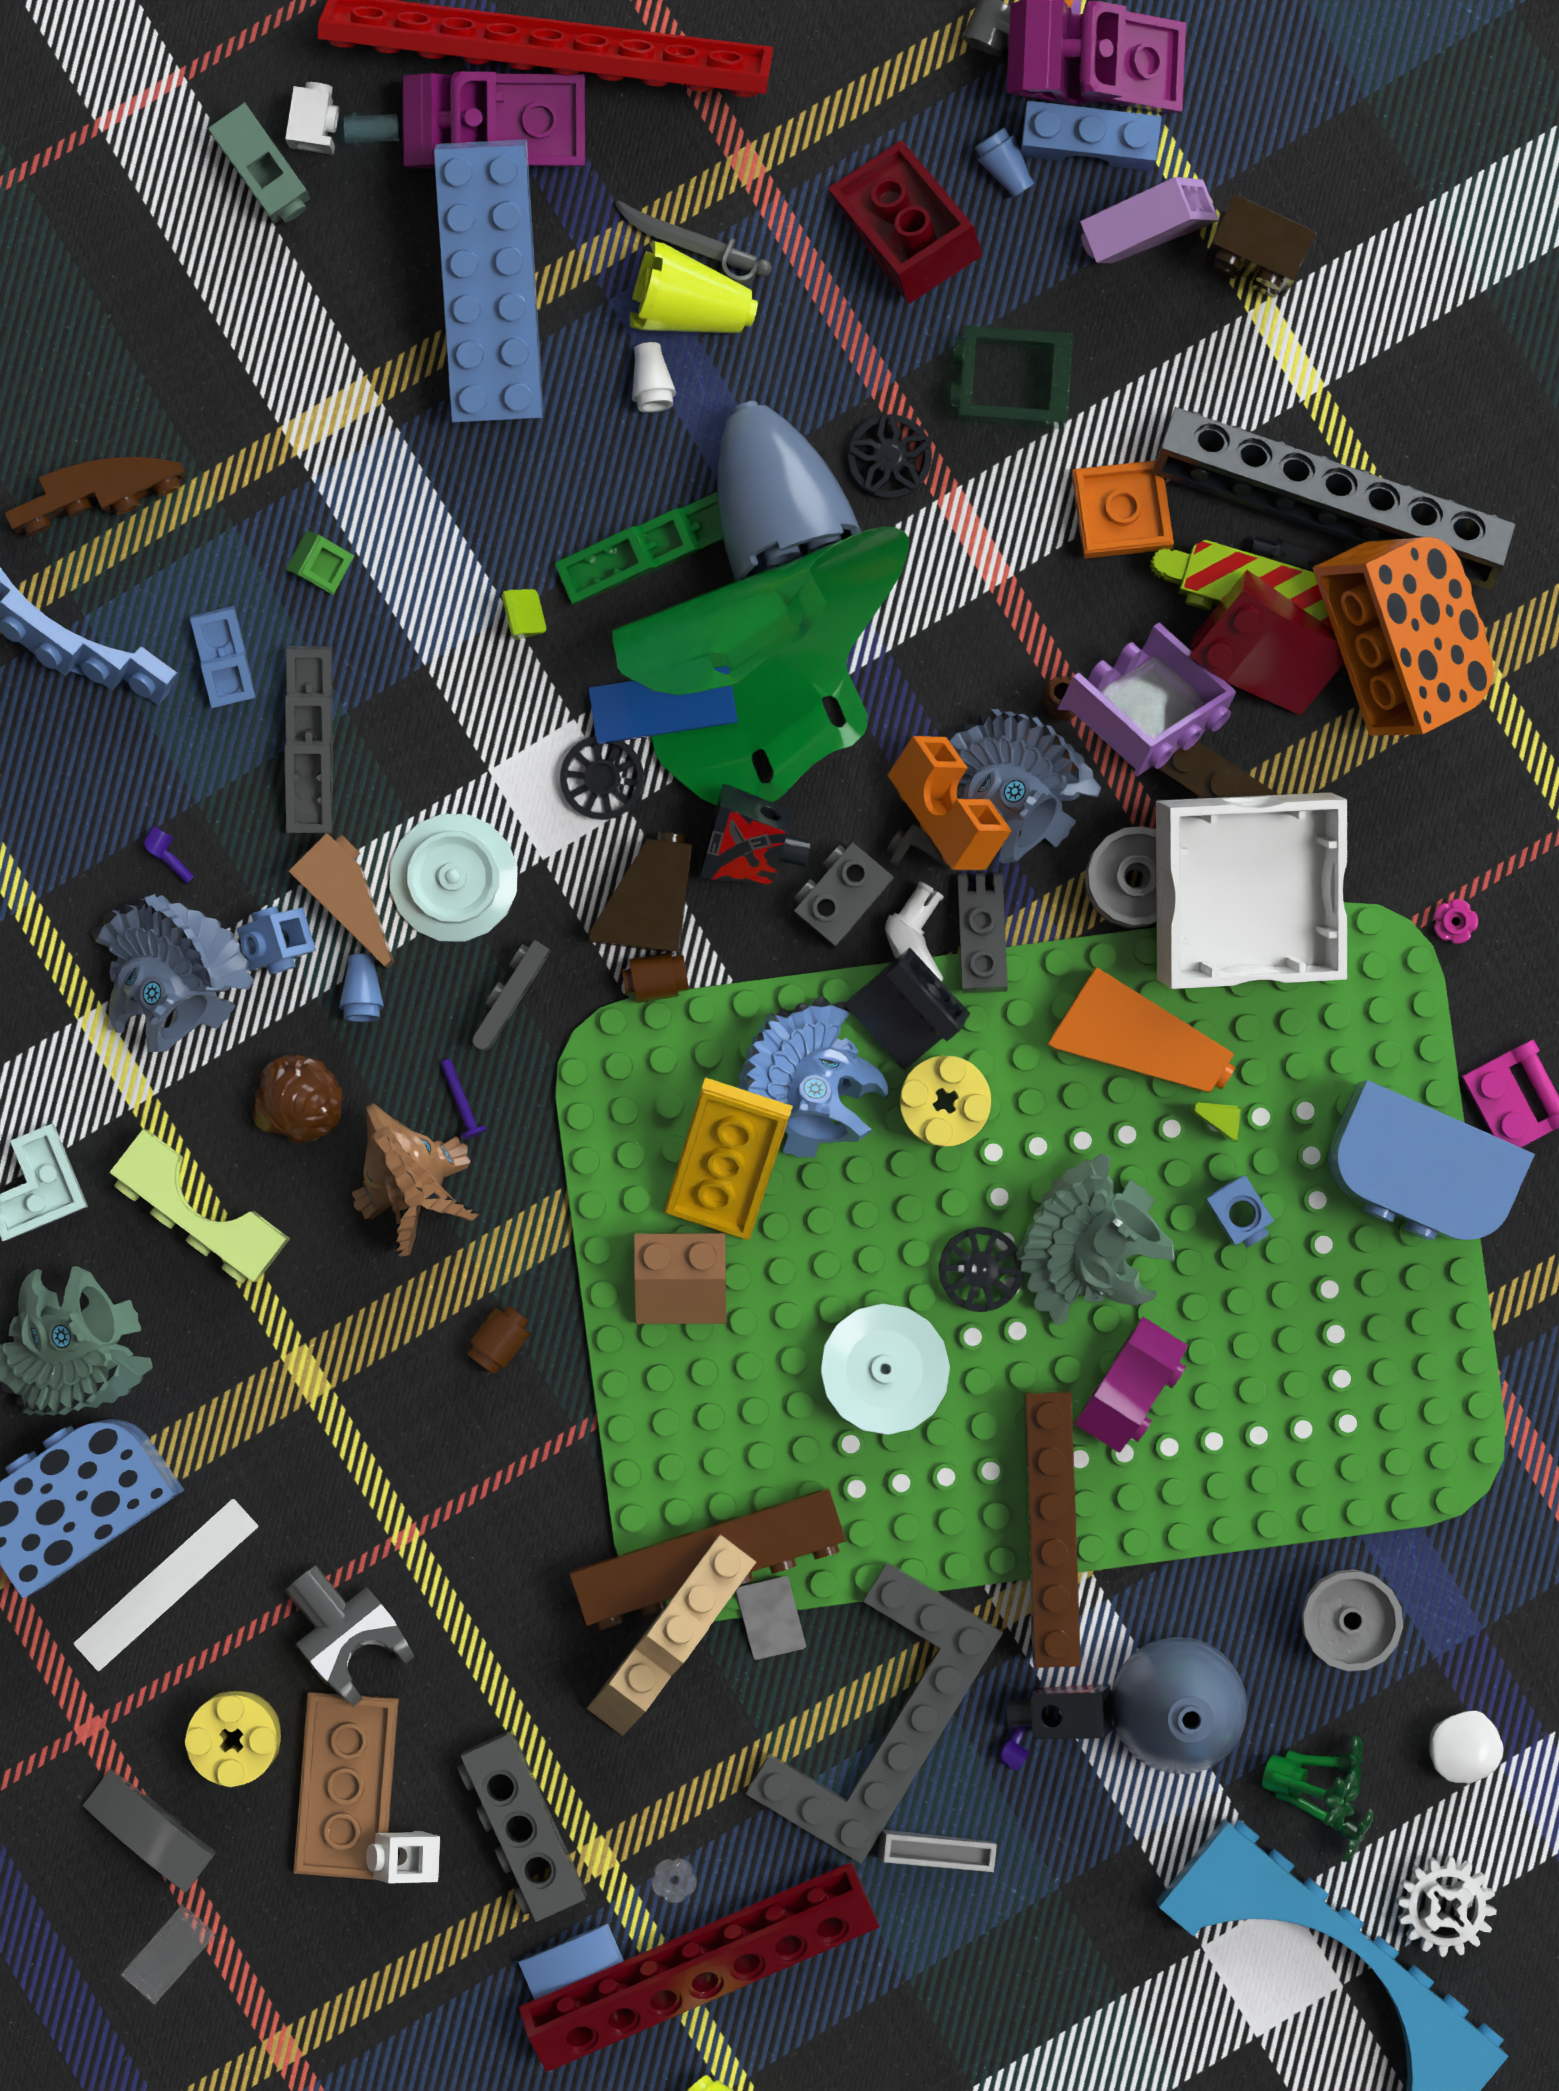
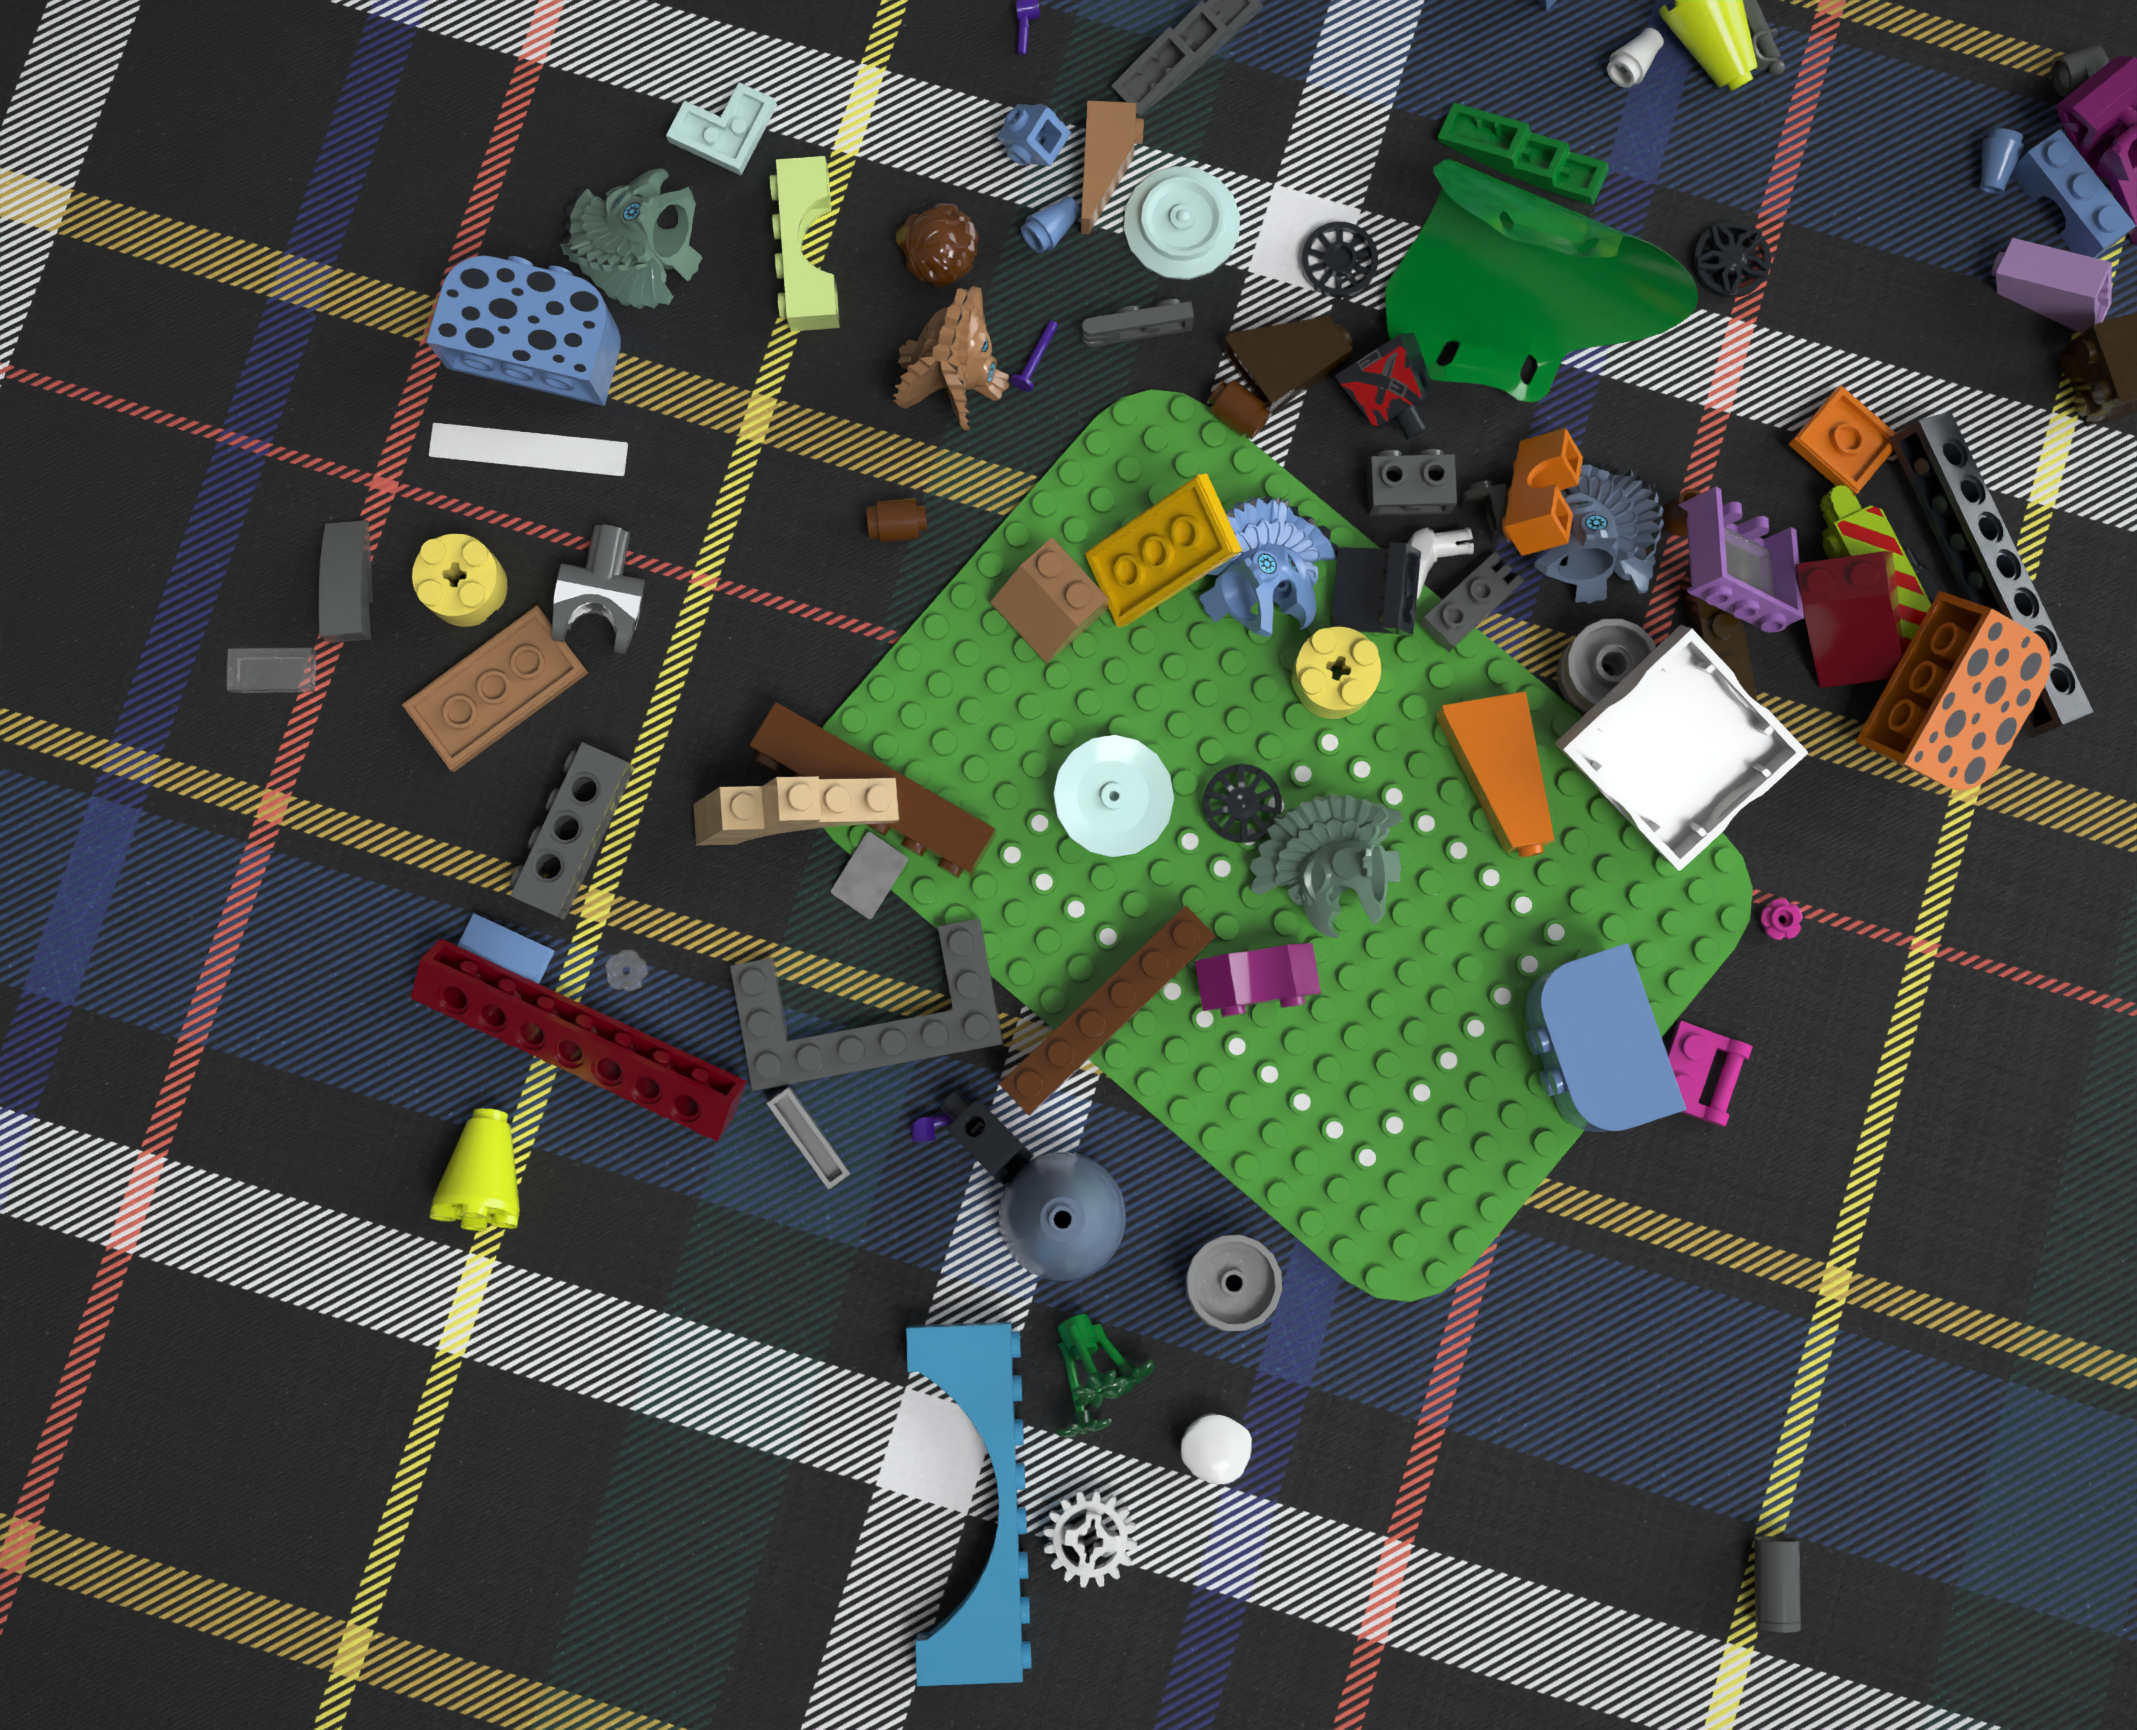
camera: 50 degrees right, 5 degrees down
(170, 962) = (957, 79): sand blue piece -> none
(417, 1857) = (479, 781): white brick -> none
(524, 613) = (1401, 110): lime slope -> none
(635, 711) = (1426, 256): blue piece -> none
(775, 493) = (1644, 186): sand blue cylinder -> none
(906, 221) = (1899, 132): dark red slope -> none
(961, 391) = (1836, 309): clear green window -> none
(1220, 1117) = (1498, 872): lime slope -> none
(1225, 1197) = (1460, 932): medium blue brick -> none

